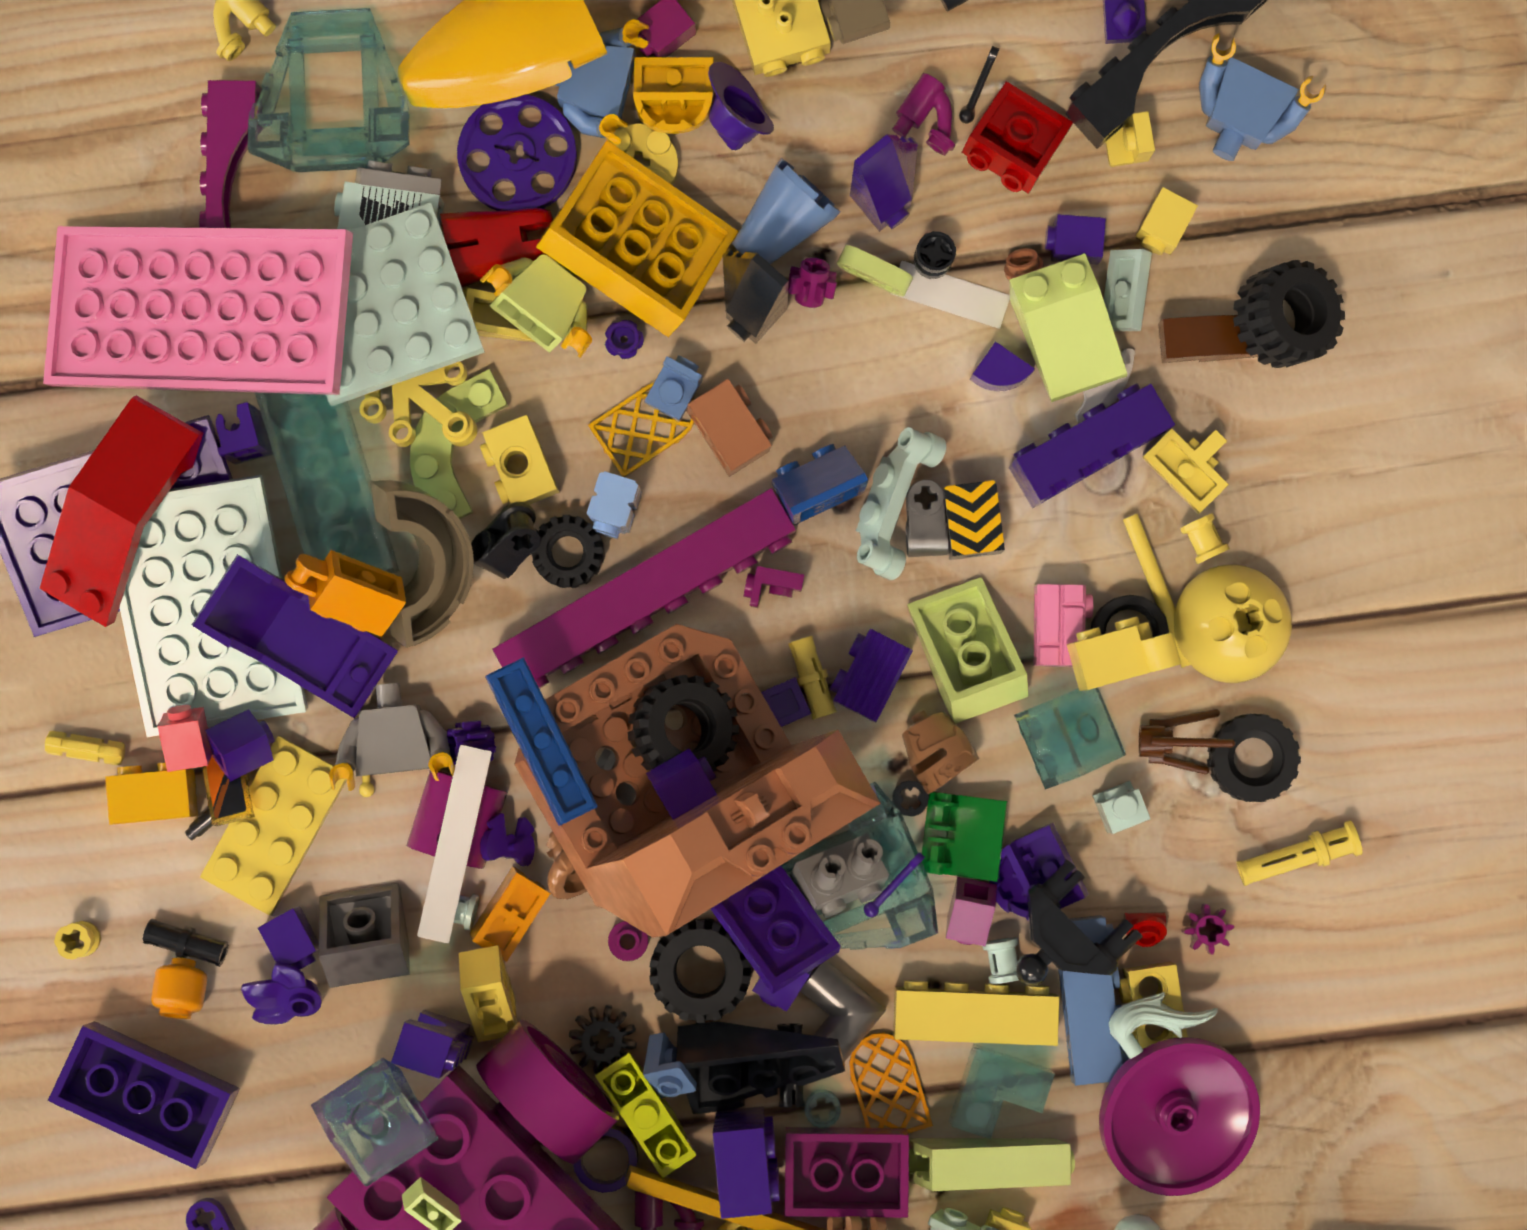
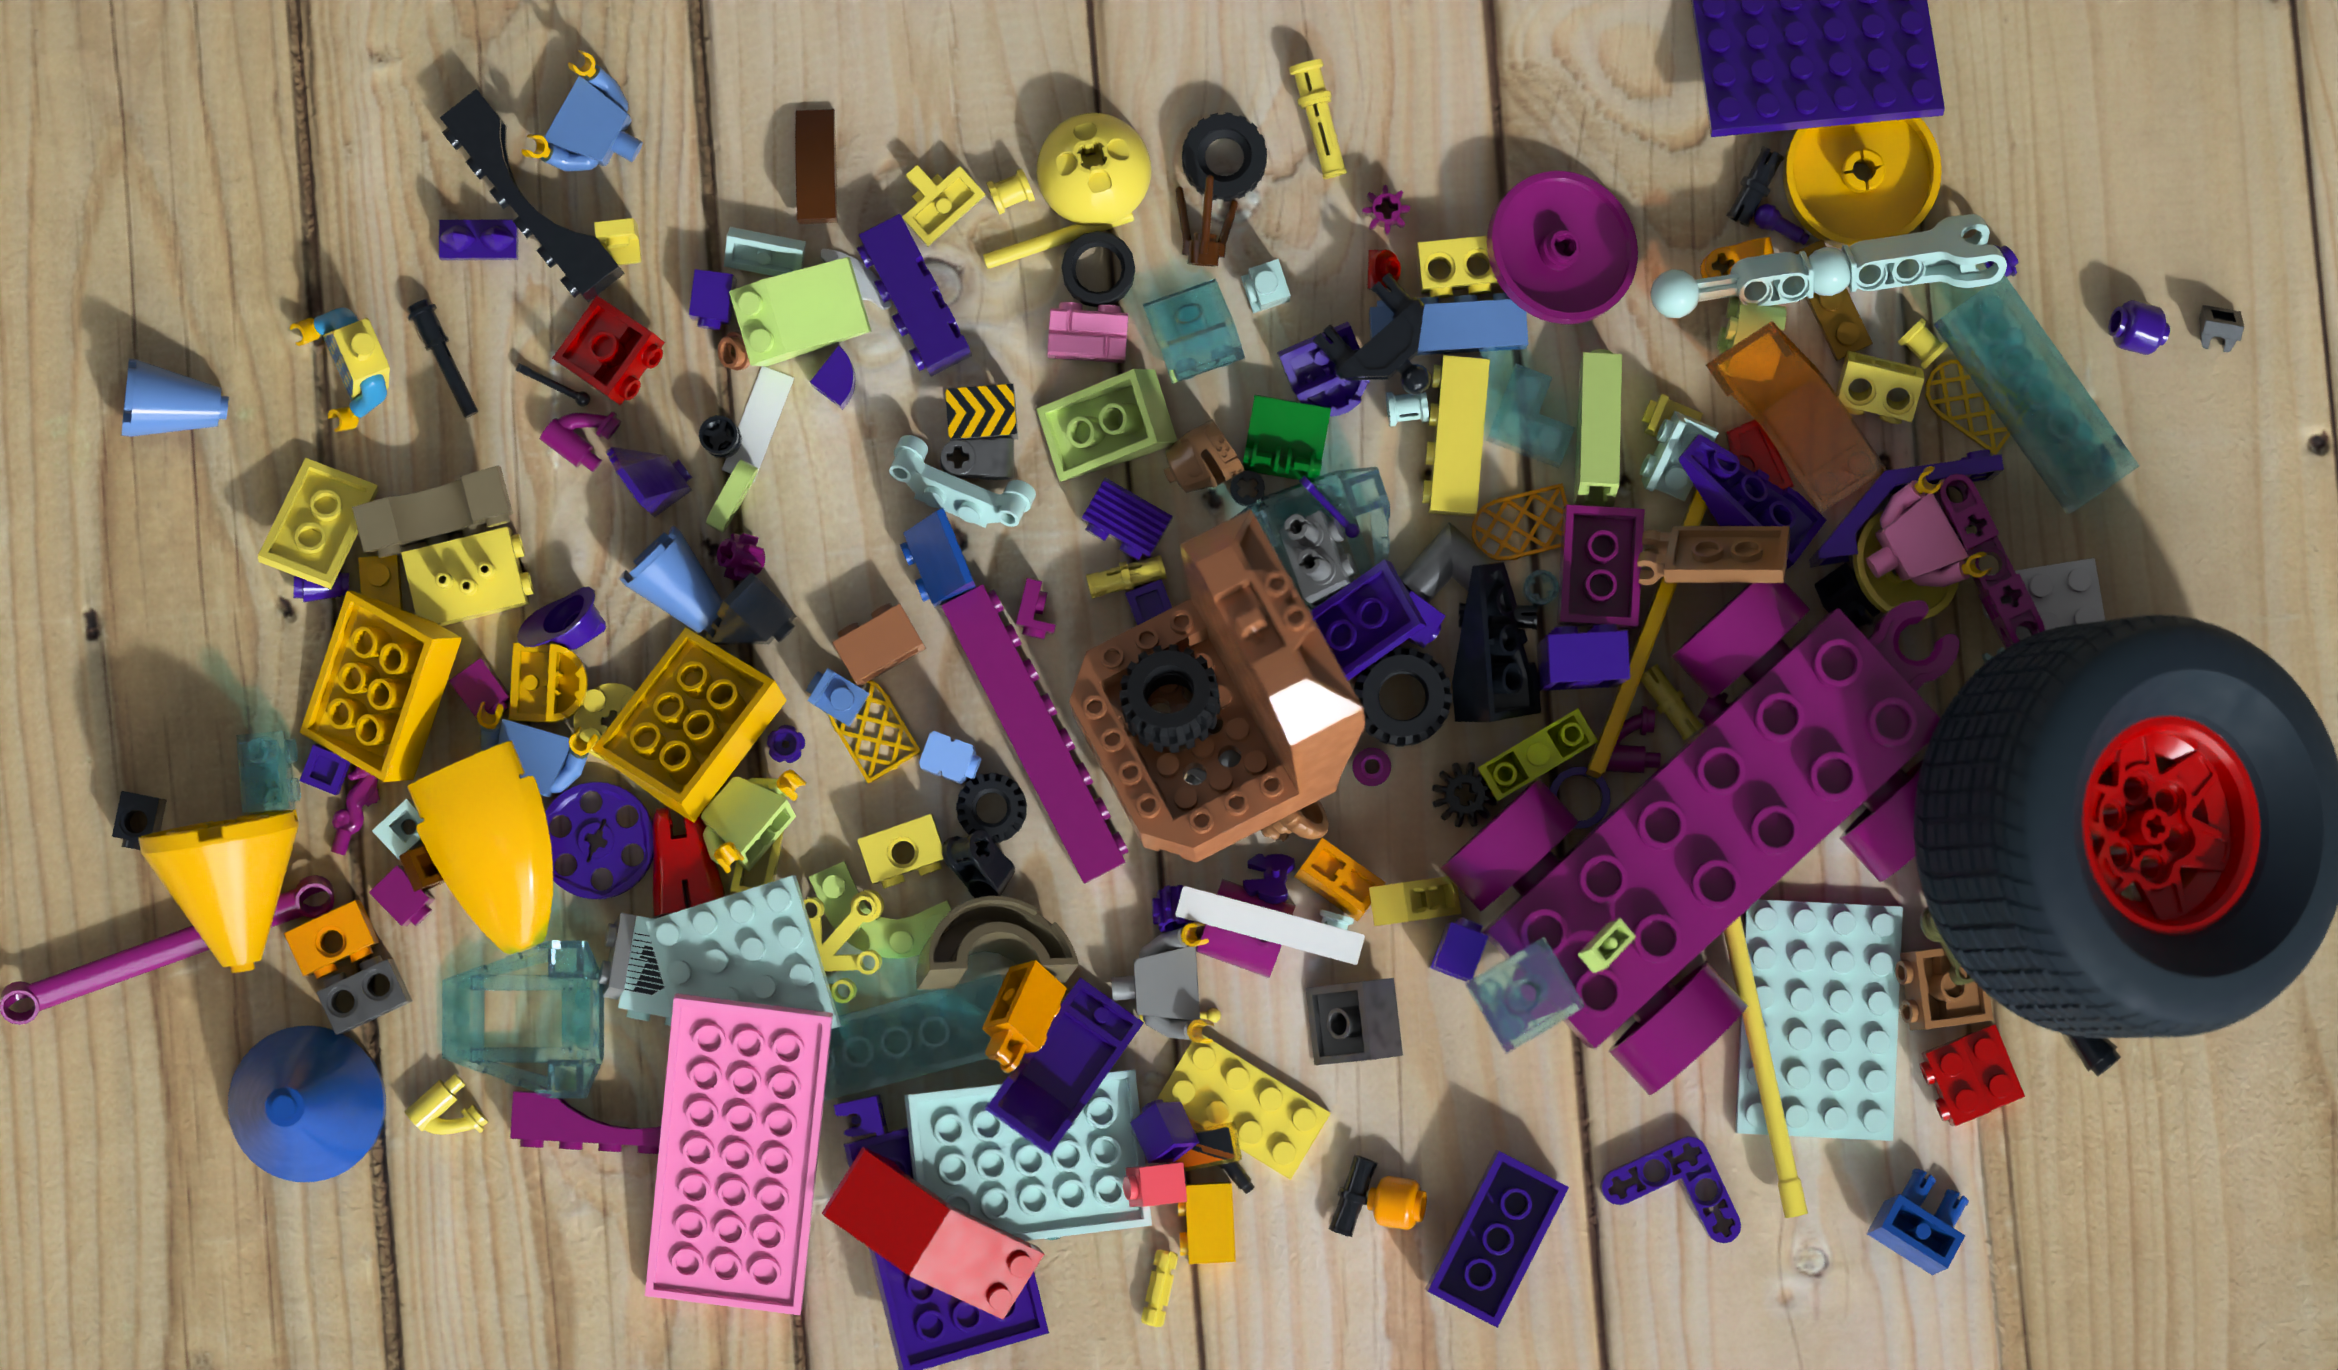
camera: 90 degrees left, 0 degrees up
(66, 945) = (1349, 1311): light yellow bush -> none
(282, 996) = (1409, 1101): dark purple plate -> none
(291, 938) = (1355, 1092): dark purple brick -> none
(541, 741) = (1176, 830): blue tile -> none
(662, 1070) = (1496, 734): medium blue bracket -> none
(683, 782) = (1222, 697): dark purple brick -> none
(971, 911) = (1358, 435): brick -> none
(1120, 654) = (1119, 278): light yellow hinge -> none
(1151, 1011) = (1461, 268): light aqua piece -> none
(1165, 222) = (700, 211): light yellow brick -> none
(1314, 308) = (791, 73): black tyre -> none

